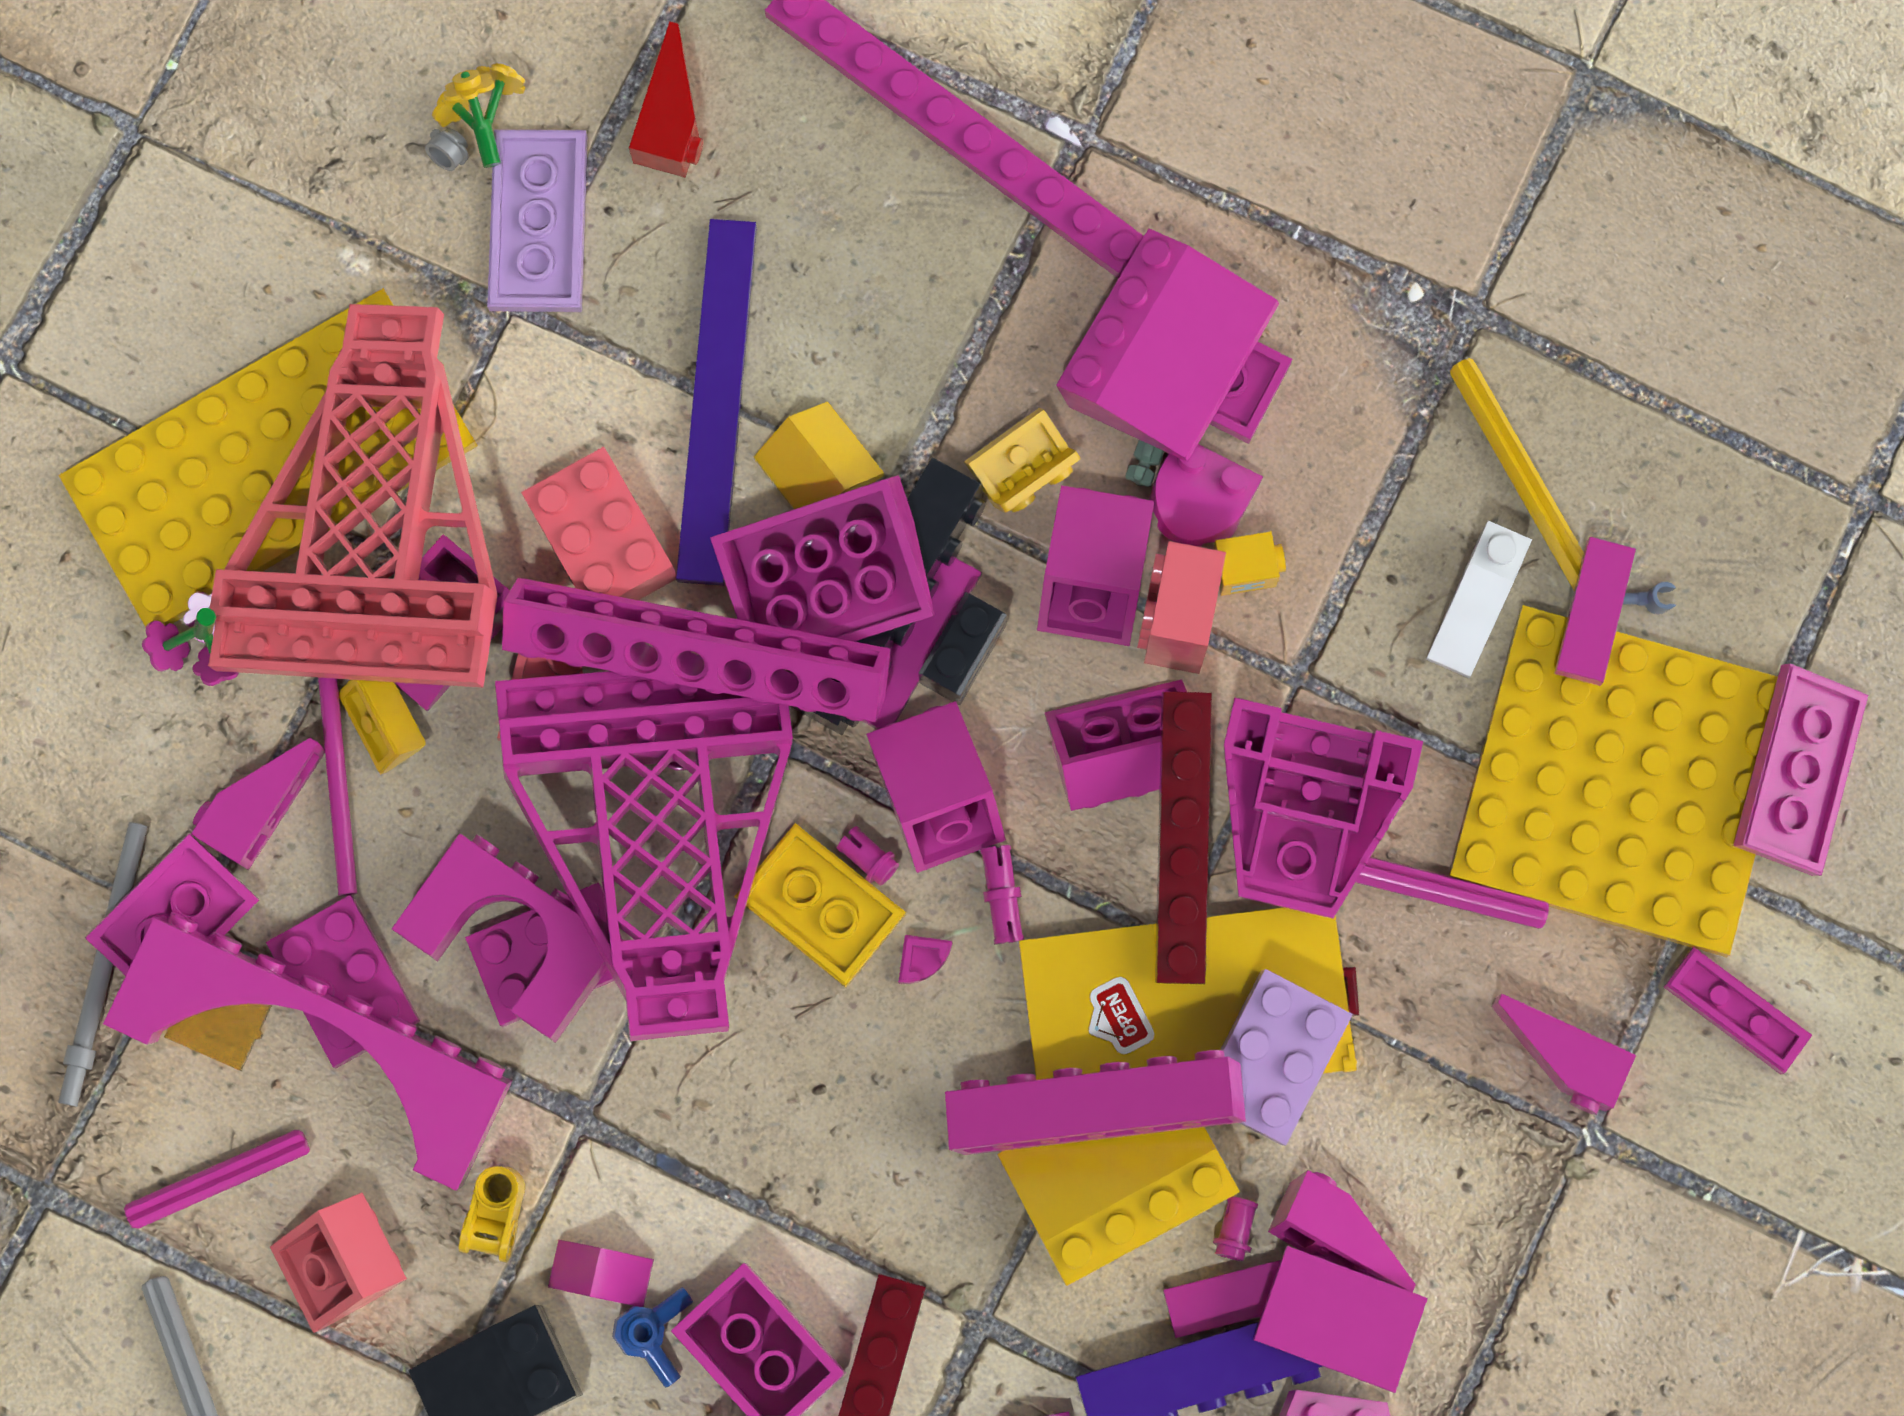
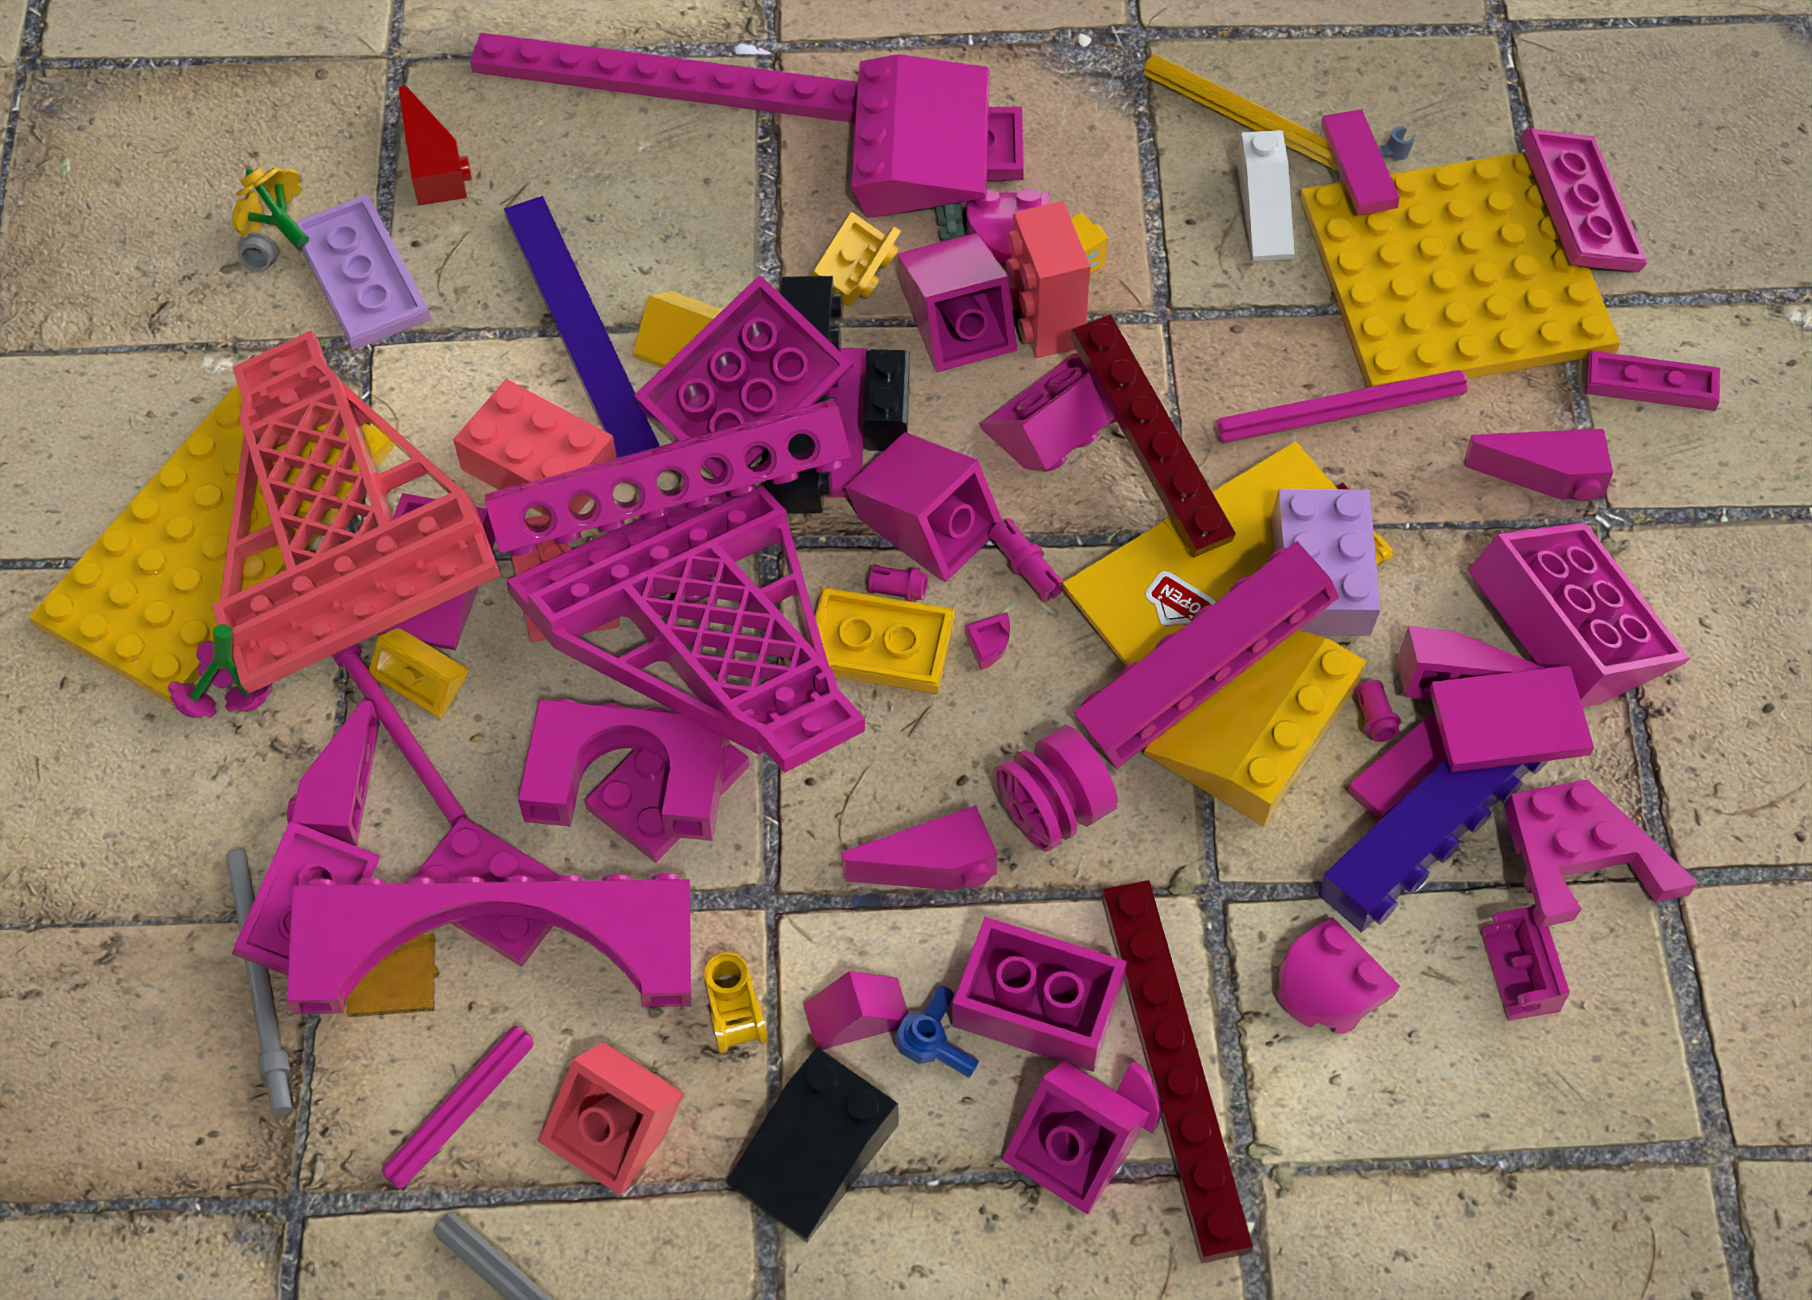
camera: 30 degrees left, 20 degrees down
(751, 1162) = (932, 855): none -> dark pink slope
(882, 1162) = (1056, 788): none -> dark pink wheel
(1309, 803) = (1235, 376): dark pink wedge -> none
(1491, 1228) = (1576, 609): none -> dark pink slope

